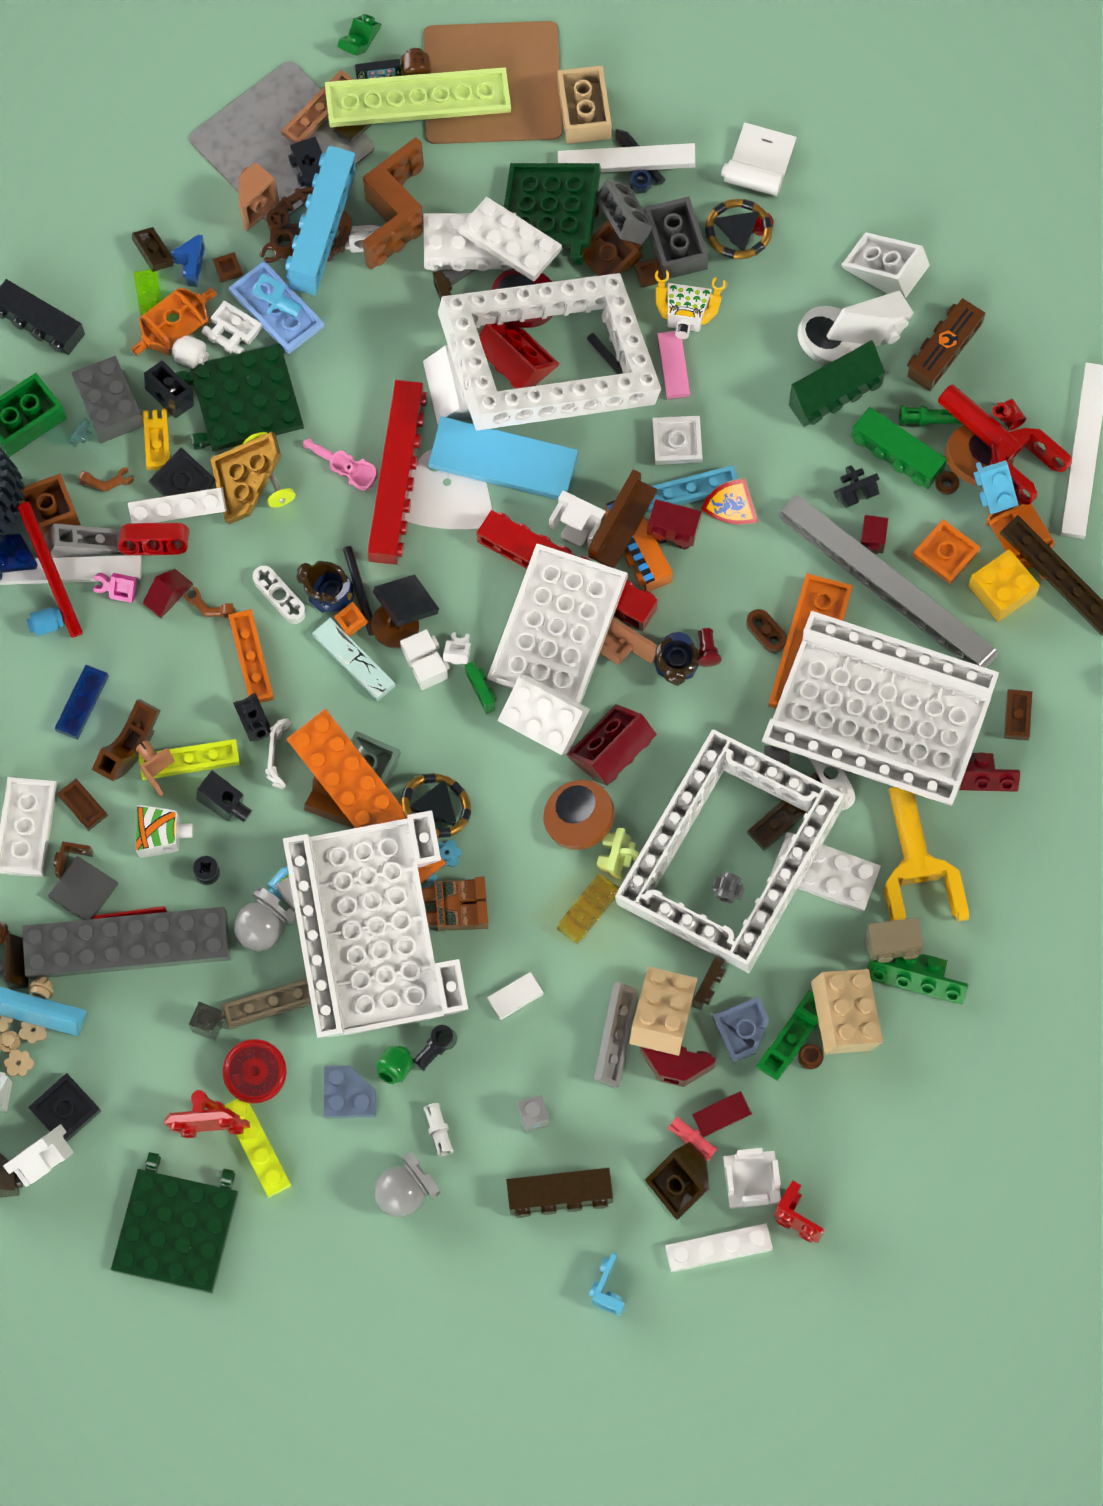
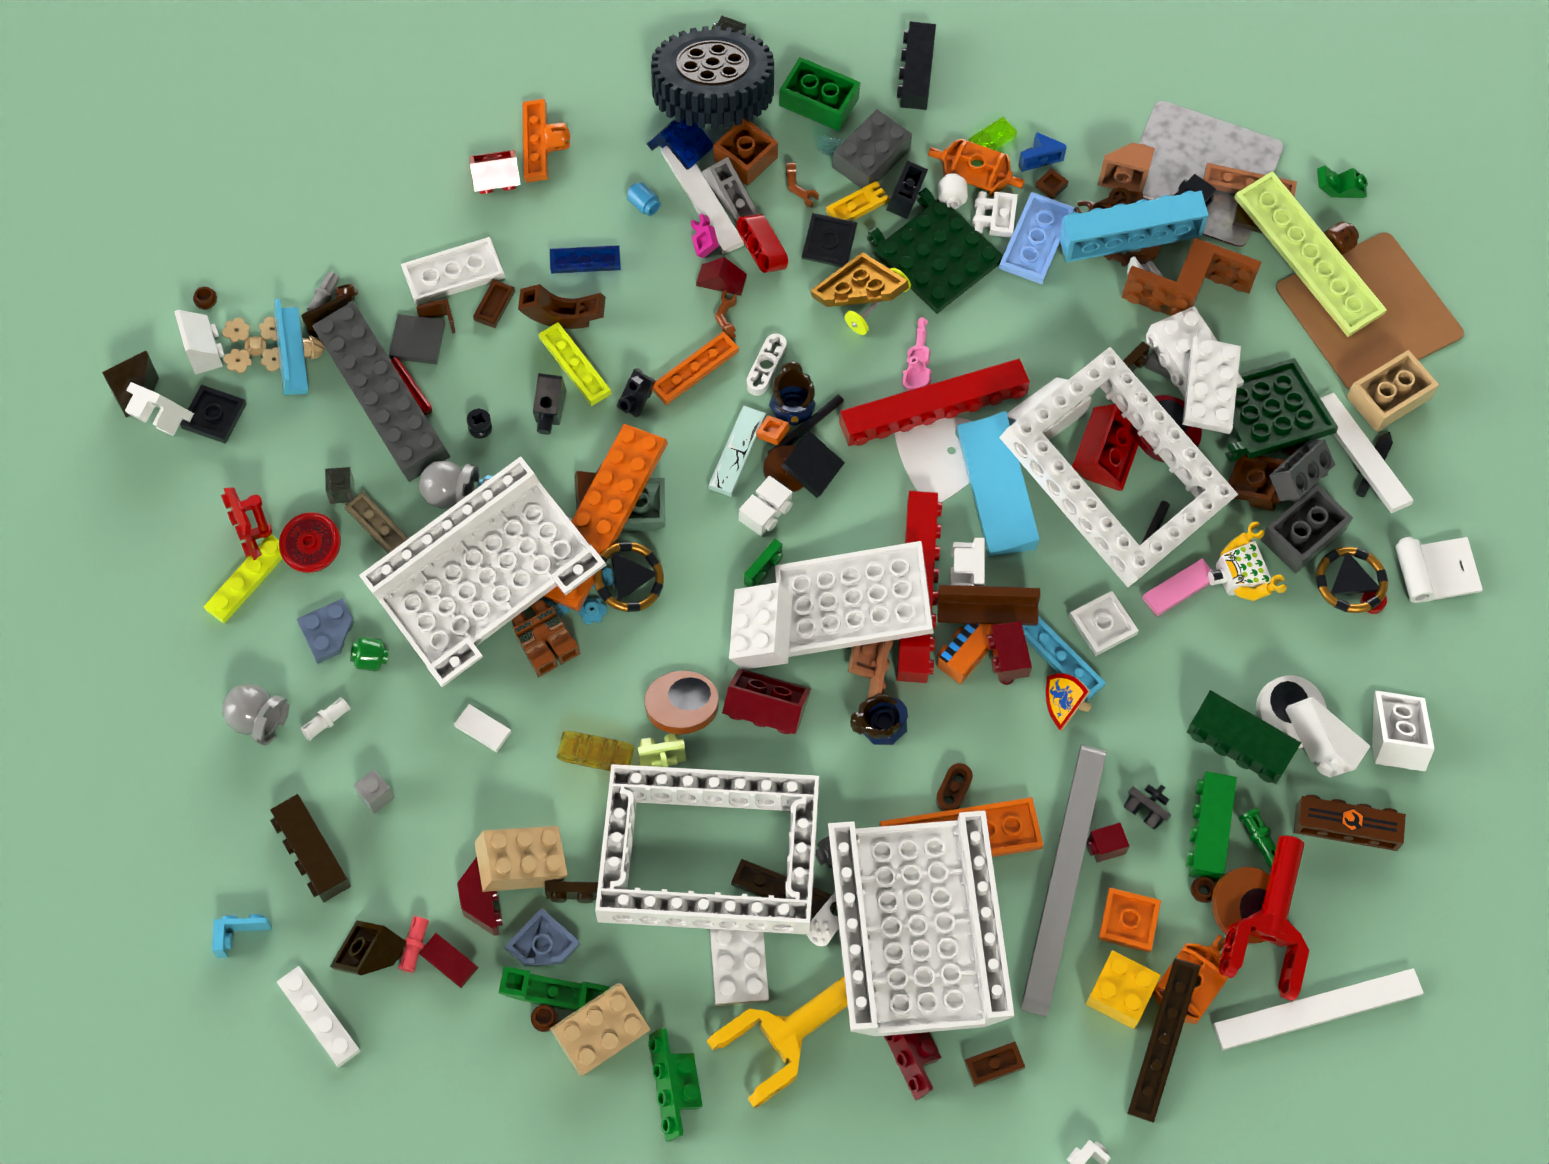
camera: 60 degrees right, 5 degrees down
(50, 569) = (687, 176): red axle -> none
(152, 249) = (1032, 120): dark brown plate -> none
(154, 762) = (553, 336): nougat bracket -> none
(159, 831) = (495, 370): torso -> none
(175, 1228) = (145, 548): dark green plate -> none
(177, 506) = (802, 247): white plate -> none
(276, 299) = (1038, 227): medium azure bracket -> none
(276, 734) = (601, 428): white piece -> none
(378, 69) = (1316, 210): black tile -> none
(434, 1048) = (402, 680): black pin -> none
(457, 650) = (787, 528): white plate -> none
(616, 1035) = (463, 834): light grey plate -> none
(640, 181) = (1348, 475): dark blue tile -> none
(646, 272) = (1260, 516): reddish brown plate -> none
(708, 652) = (906, 743): dark red pin -> none
(728, 887) = (659, 855): dark grey gear -> none
(752, 1178) = (397, 1016): white panel -> none
(789, 1218) = (374, 1054): red bracket -> none
(894, 940) = (690, 1040): dark tan slope -> none
(997, 487) = (1217, 931): medium azure bracket -> none
(1009, 414) = (1310, 914): red pin -> none

